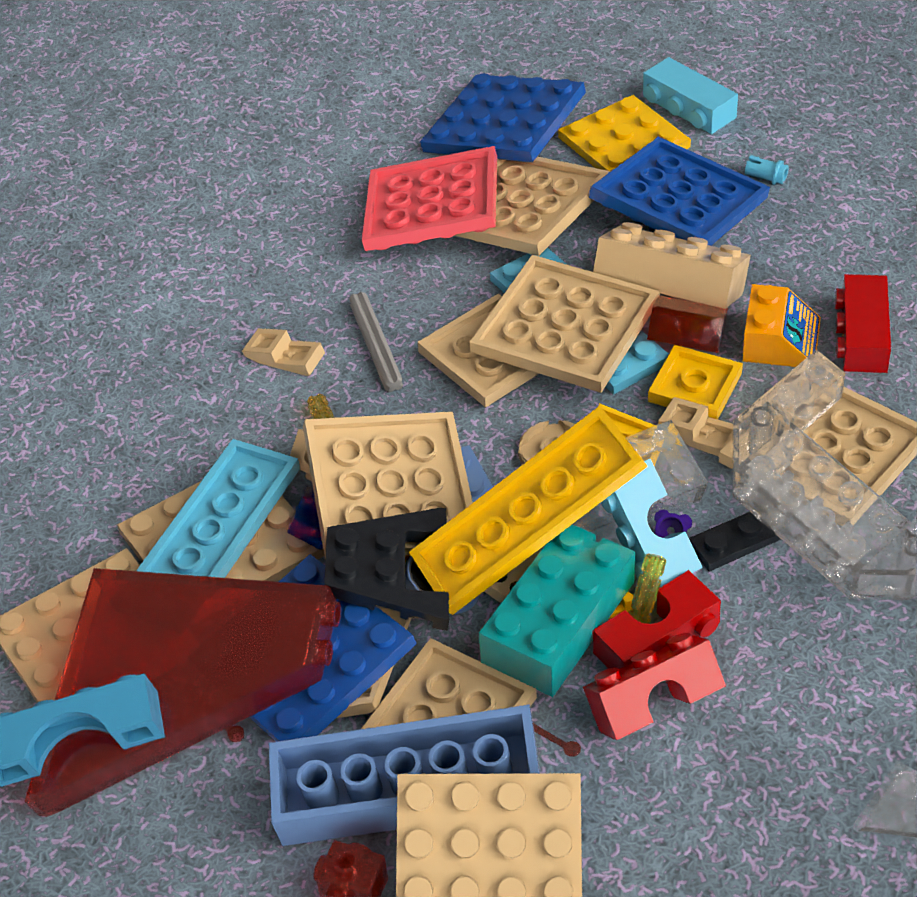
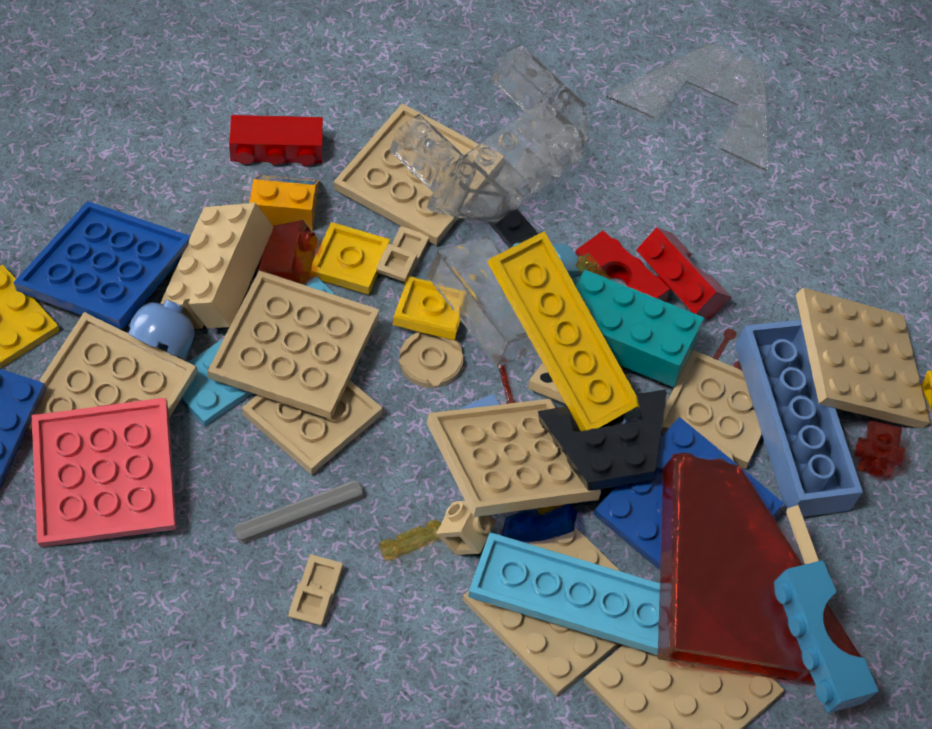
camera: 105 degrees left, 10 degrees up
(212, 760) = (802, 535): none -> tan tile
(580, 223) = (163, 327): none -> medium blue cylinder
(767, 169) = (54, 204): medium azure pin -> none

